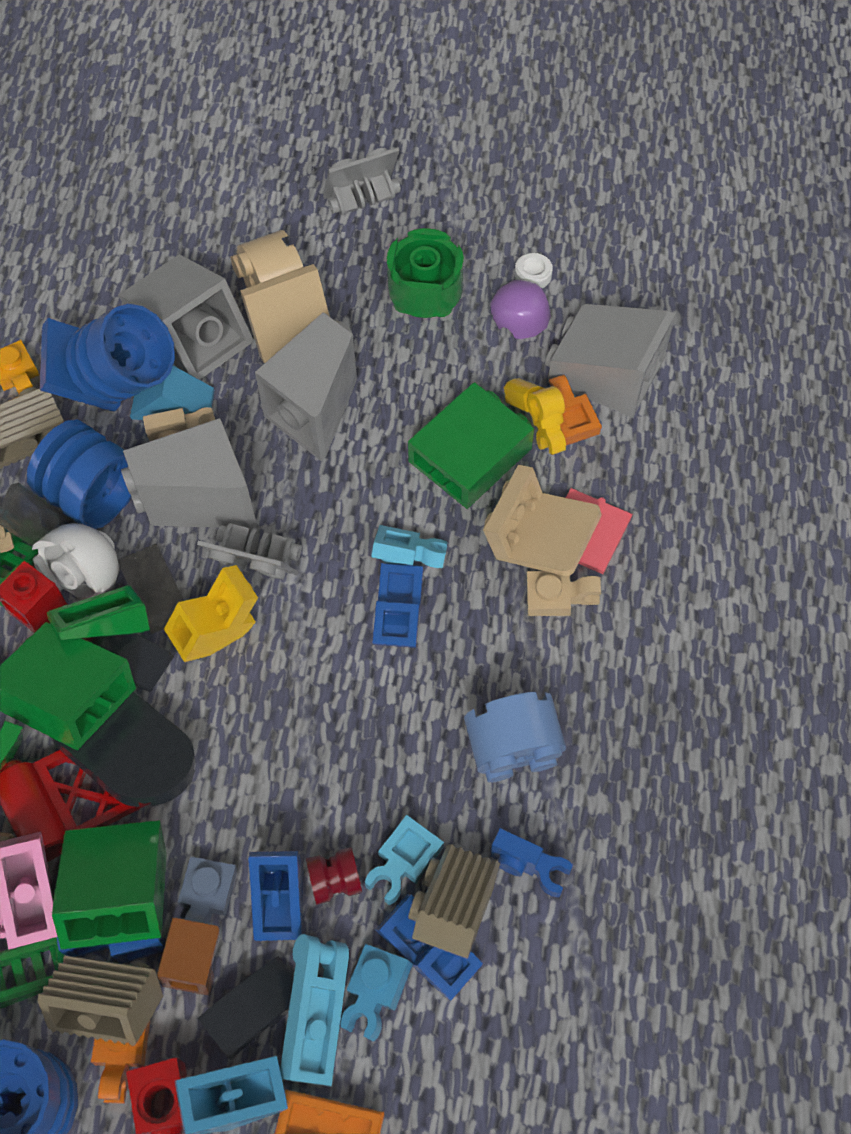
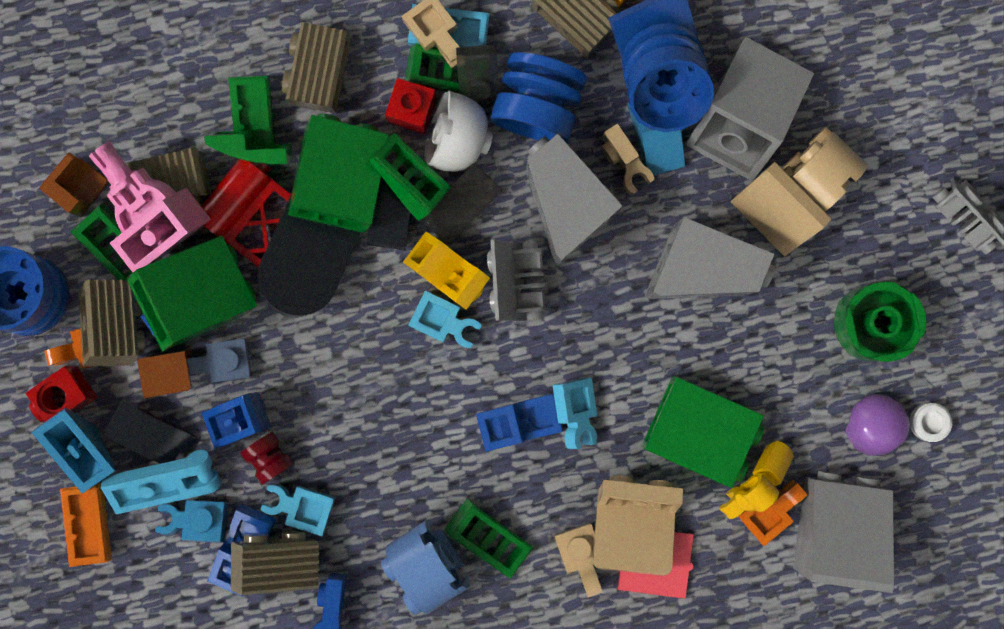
camera: 70 degrees right, 25 degrees up
(259, 646) = (438, 318): none -> medium azure plate
(482, 687) = (462, 519): none -> green slope

